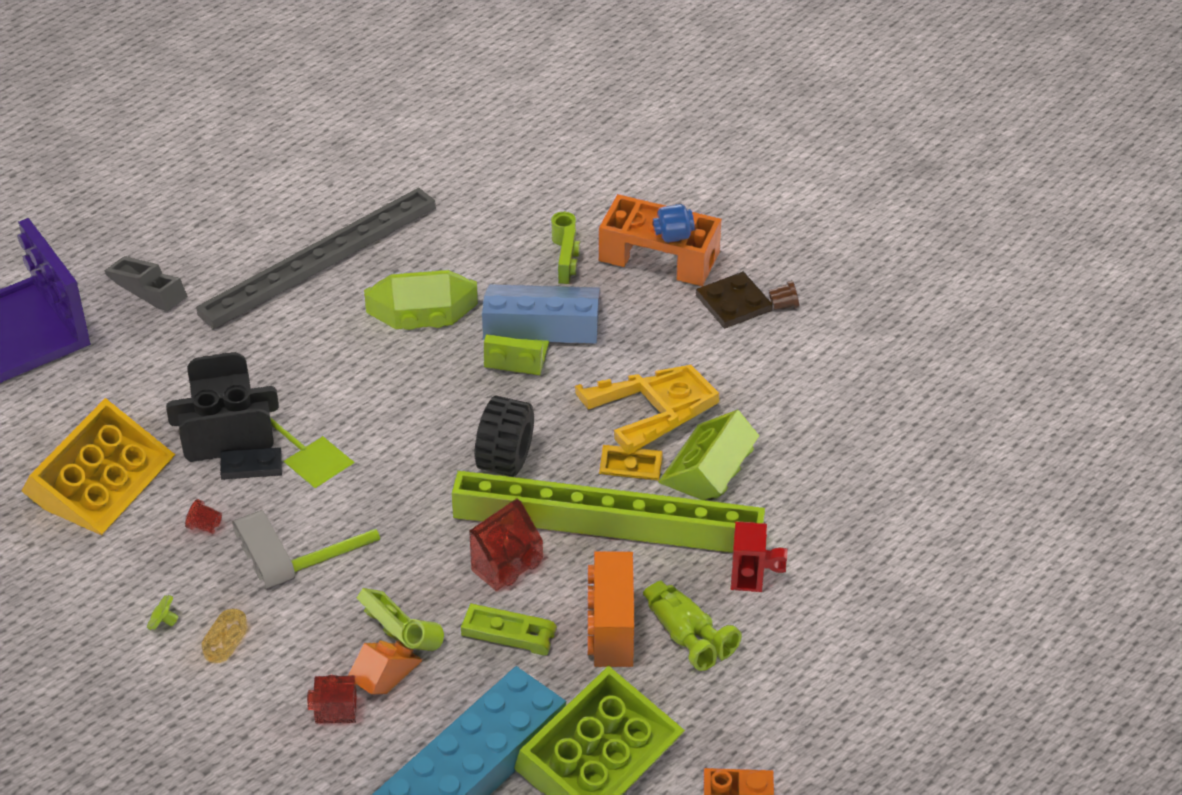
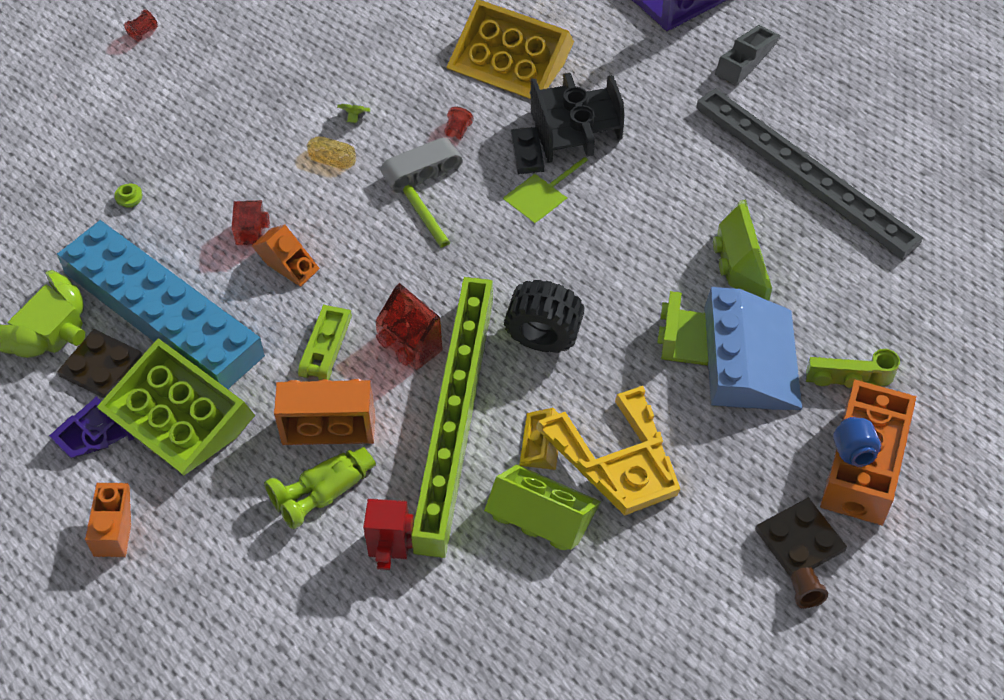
camera: 90 degrees right, 10 degrees up
(397, 625) = (334, 260): lime plate -> none

